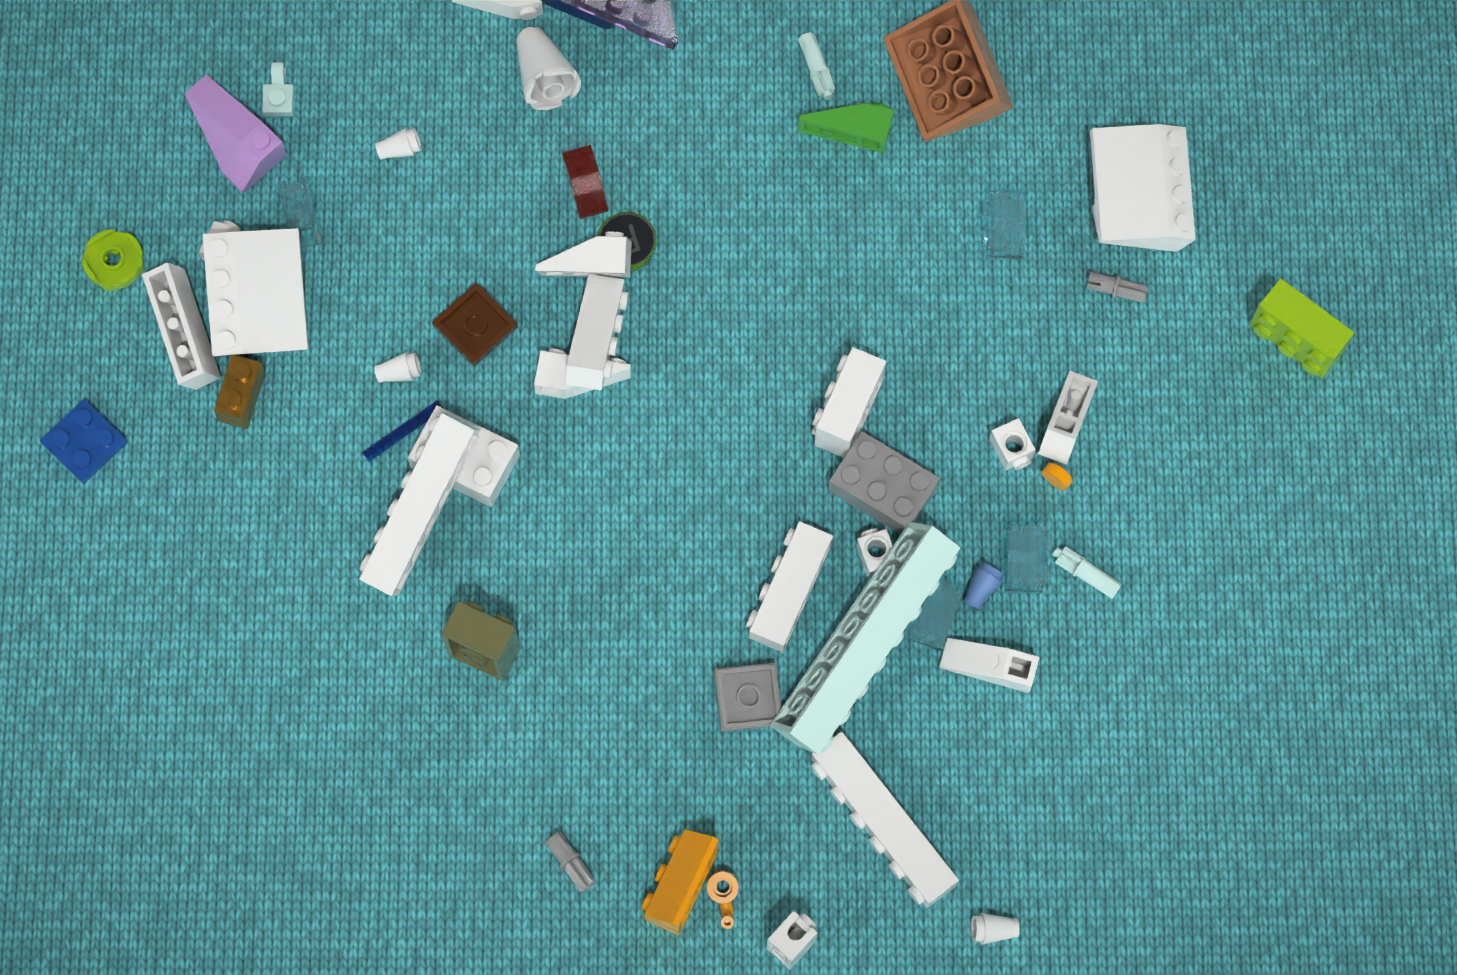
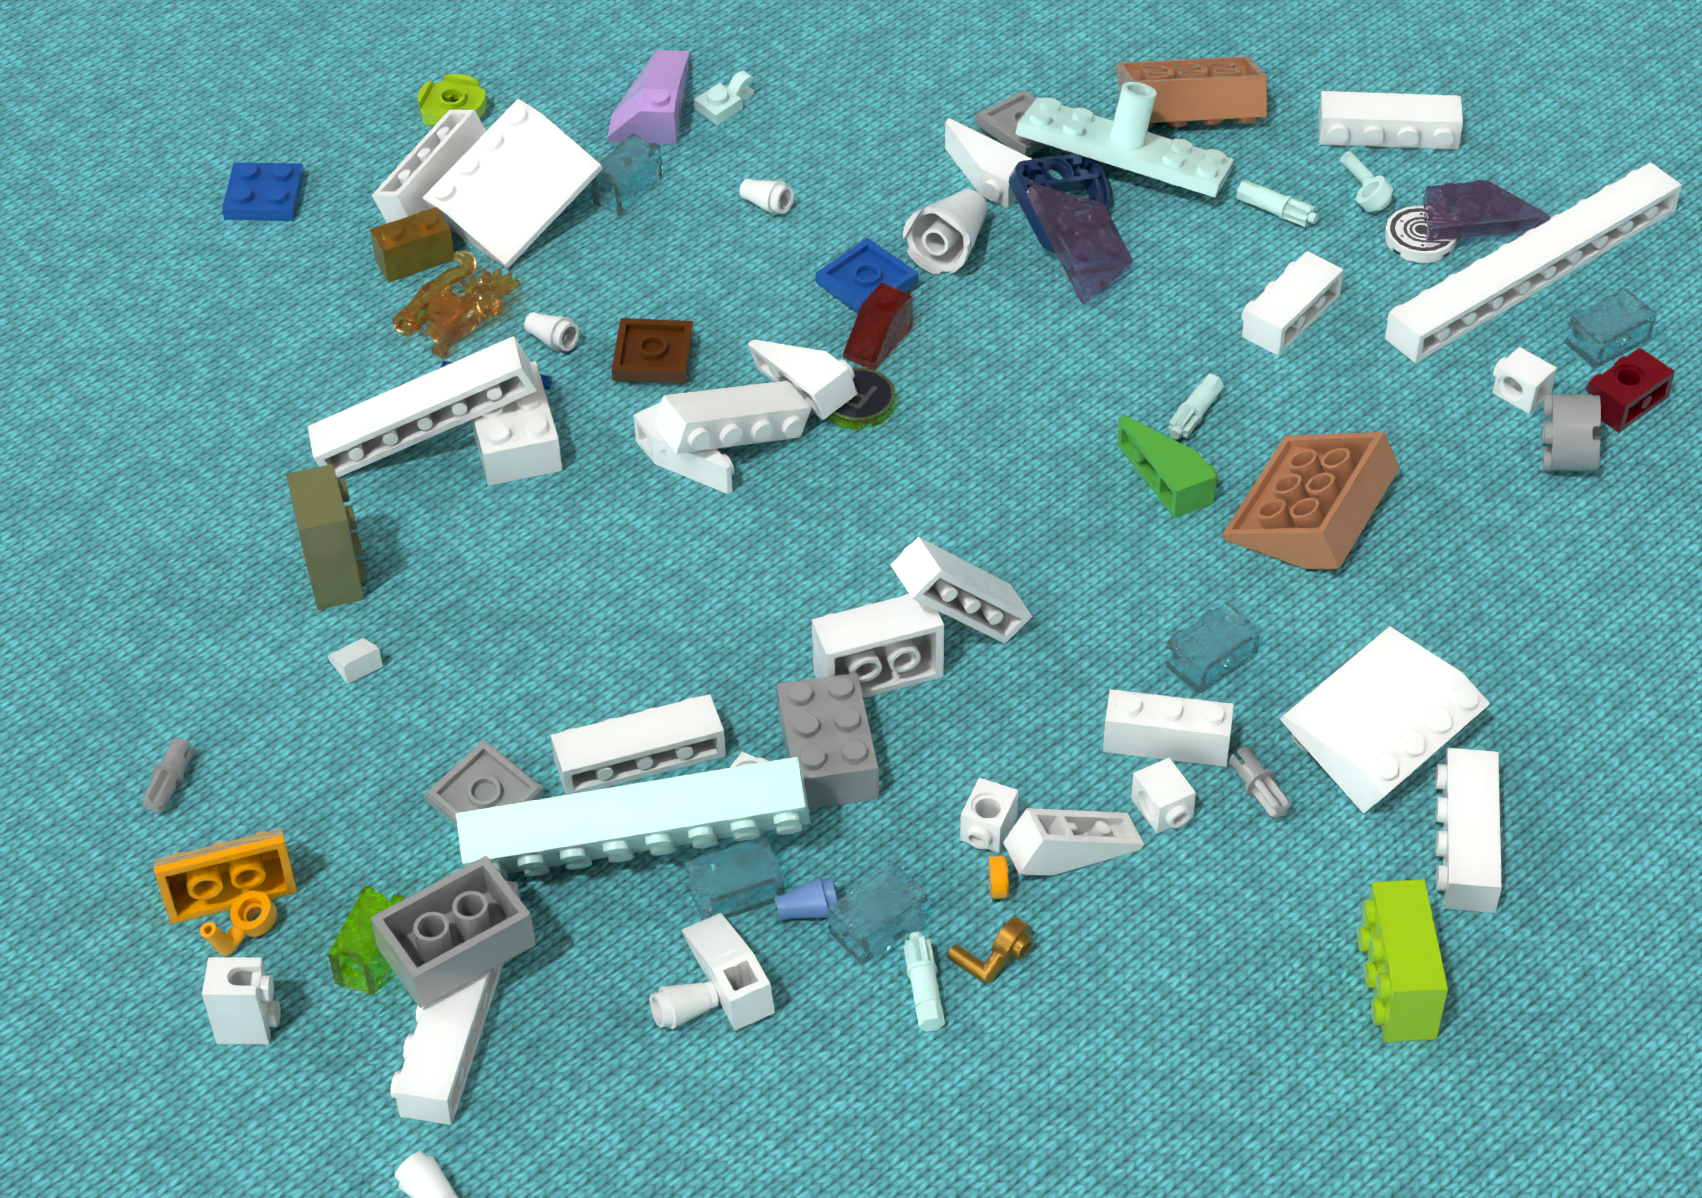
camera: 50 degrees right, 25 degrees down
(321, 416) = (448, 311): none -> clear orange animal
(532, 150) = (861, 270): none -> blue plate
(570, 690) = (356, 660): none -> white slope
(802, 838) = (358, 941): none -> clear neon green brick
(863, 794) = (453, 931): none -> light grey brick
(865, 328) = (960, 590): none -> white brick
(991, 707) = (681, 1003): none -> white cone
(1040, 300) = (1168, 727): none -> white brick
(1082, 344) = (1163, 795): none -> white brick
(1105, 507) = (1011, 943): none -> pearl gold plate
(1244, 213) = (1470, 830): none -> white brick

